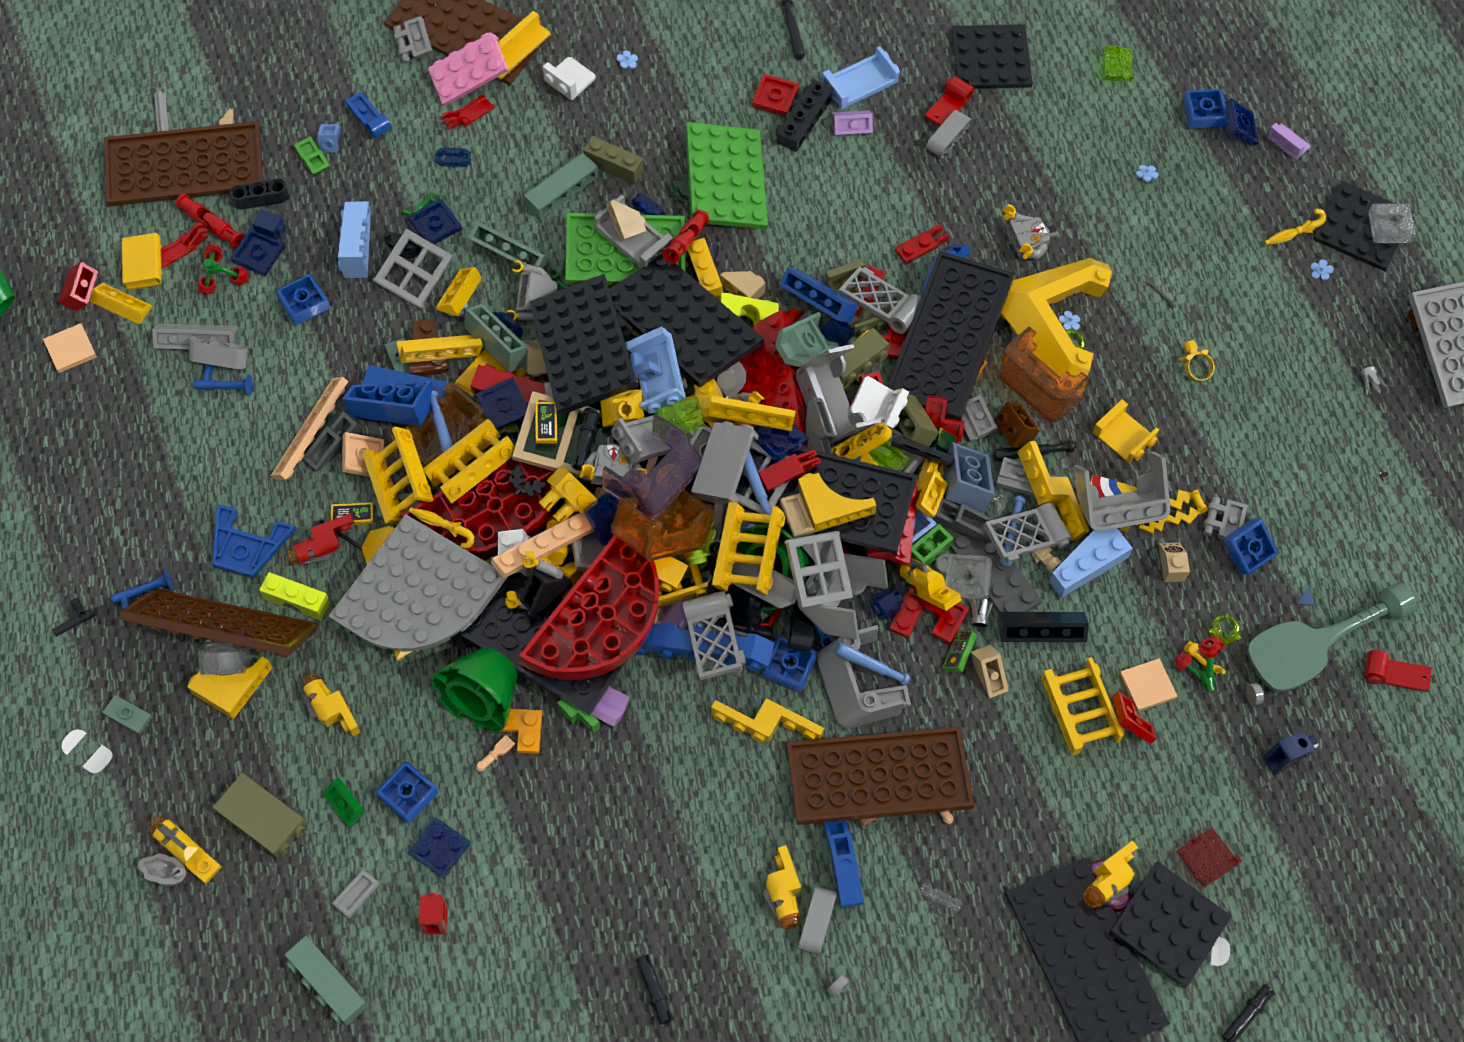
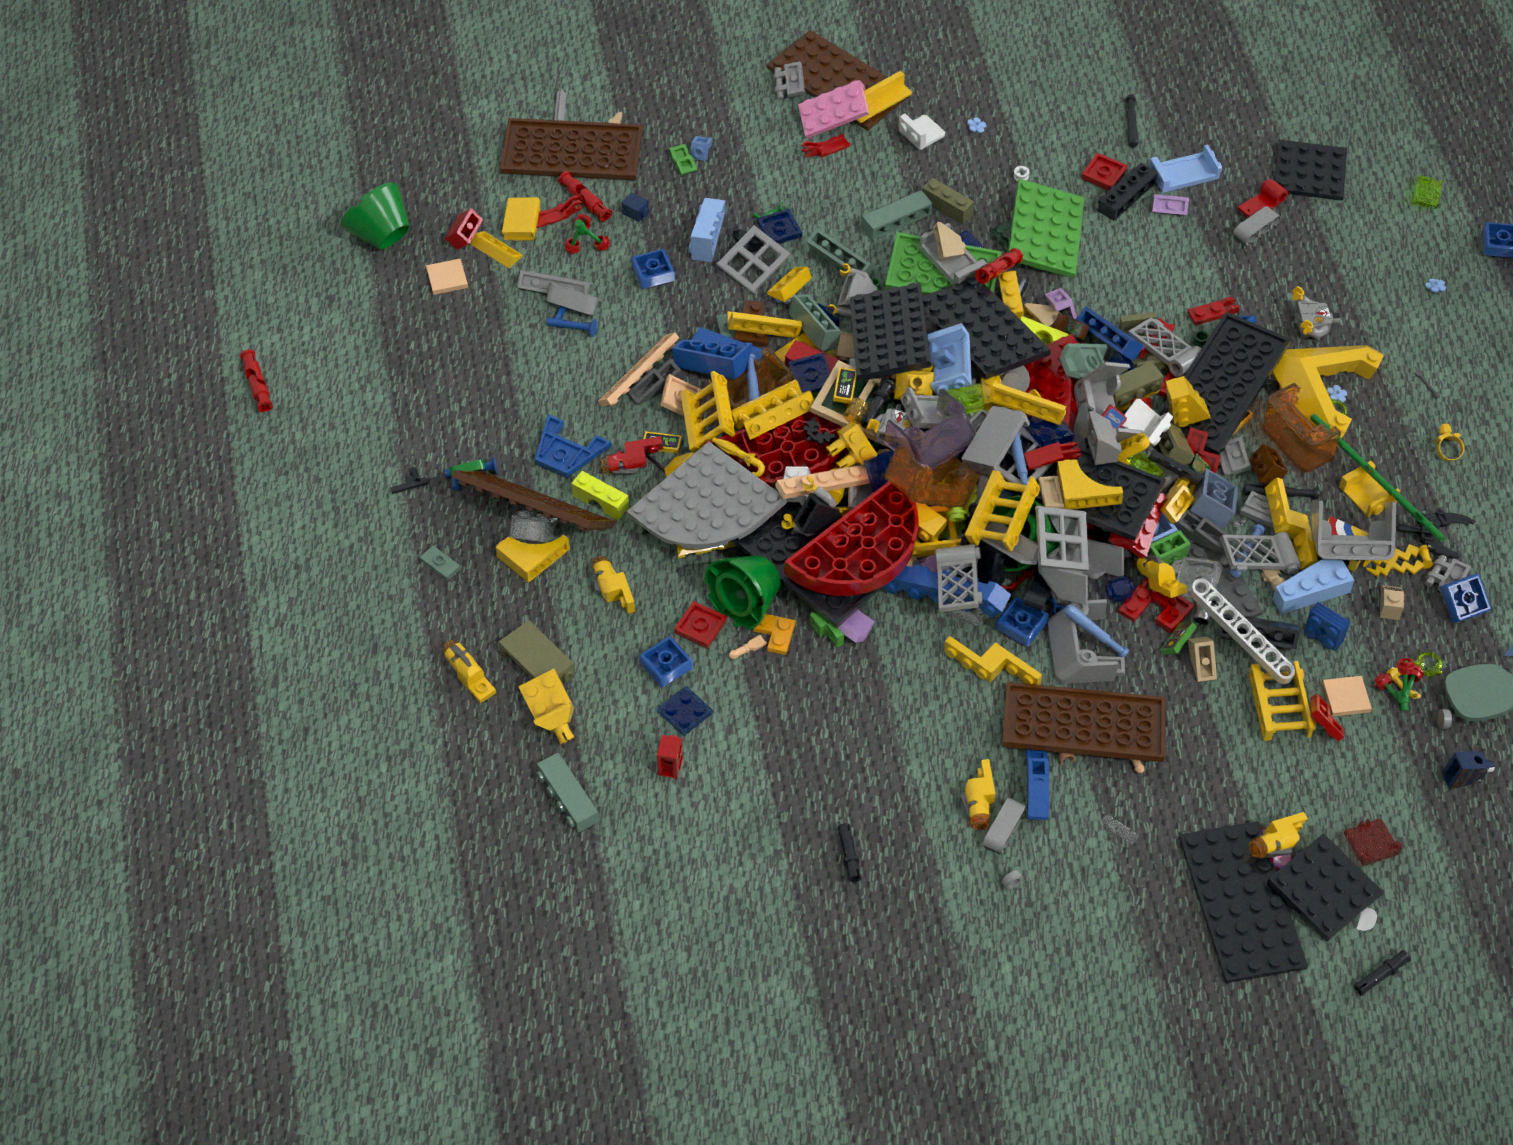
camera: 15 degrees right, 10 degrees down
(98, 759) = (408, 593): white sticker -> none
(136, 592) = (477, 465): none -> green beam
(162, 869) = (447, 683): light grey arm -> none
(257, 252) = (621, 227): clear blue plate -> none
(259, 194) = (631, 182): black beam -> none
(285, 876) = (549, 704): none -> yellow plate
(343, 802) = (610, 660): green plate -> none
(356, 893) = (606, 733): light grey tile -> none
(368, 115) = (738, 135): blue plate -> none
(437, 736) = (700, 624): none -> red plate
(453, 157) = (805, 179): clear blue beam -> none
(564, 452) = (856, 409): none -> clear yellow wheel
(683, 115) = (1021, 169): none -> white bush
(759, 264) = (1060, 300): none -> lavender panel
(776, 293) = (1071, 326): none -> reddish brown leg
(841, 442) = (1102, 439): none -> light grey slope
(845, 406) = (1115, 416): none -> slope
(915, 276) = (1203, 335): none -> dark green plate
(917, 370) = (1185, 403): none -> yellow wedge
(1039, 638) = (1244, 640): none -> white beam
(1113, 609) = (1326, 626): none -> blue brick
(1138, 423) = (1383, 483): none -> green plant
(1196, 469) = (1441, 519): none -> black bar

